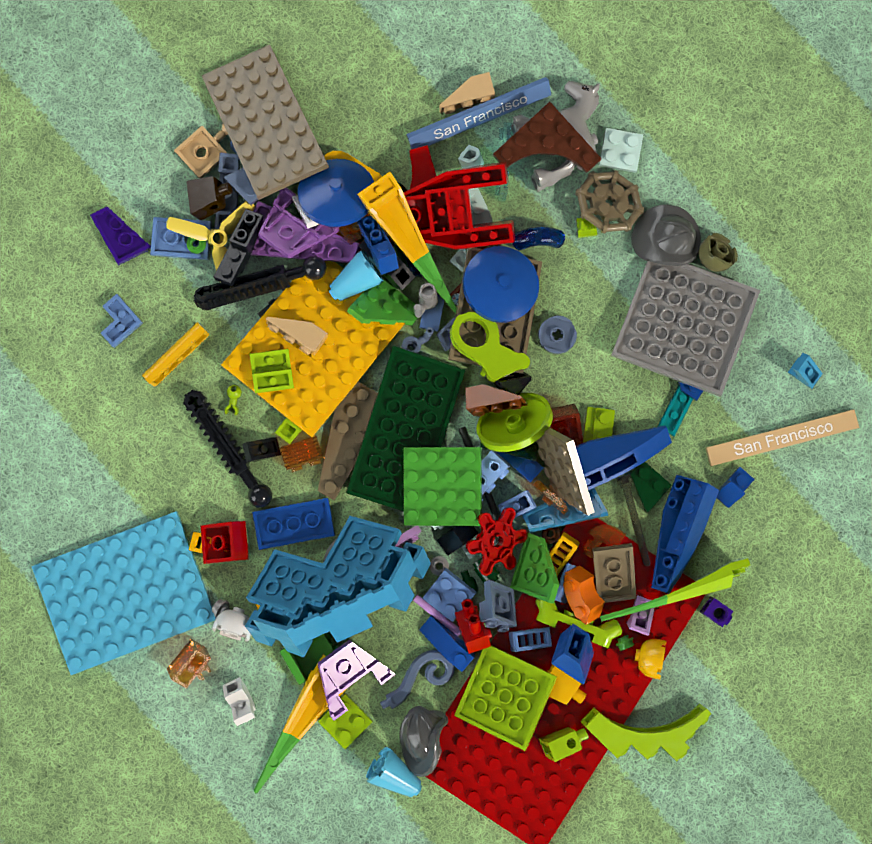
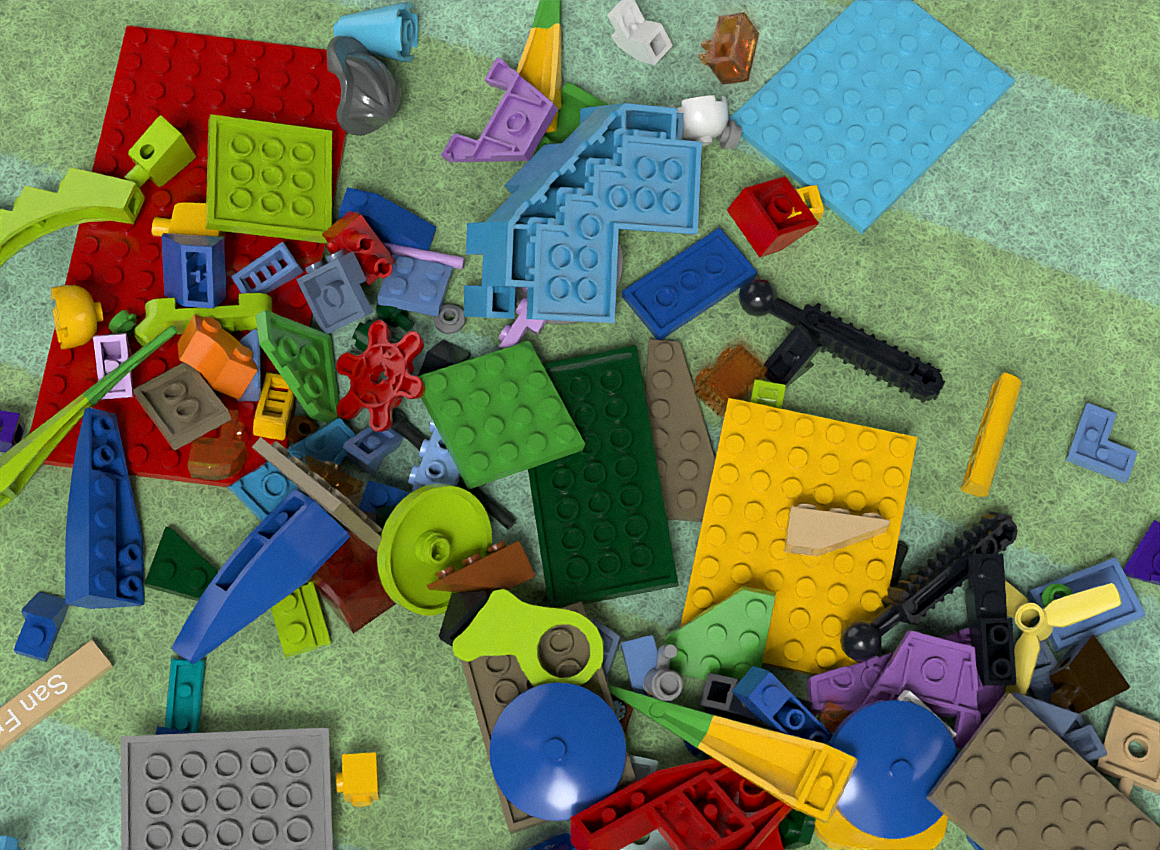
camera: 150 degrees right, 20 degrees down
(233, 395) = (874, 417): lime arm -> none
(271, 370) = (838, 458): lime slope -> none
(347, 726) = (471, 68): lime plate -> none
(355, 278) = (791, 651): medium azure cone -> none
(400, 694) = (420, 134): sand blue plant -> none
(416, 343) = (644, 615): sand blue plate -> none
(566, 329) = (442, 714): sand blue plate -> none
(605, 324) = (359, 779): none -> yellow brick
(625, 484) = (218, 551): clear smoke piece -> none

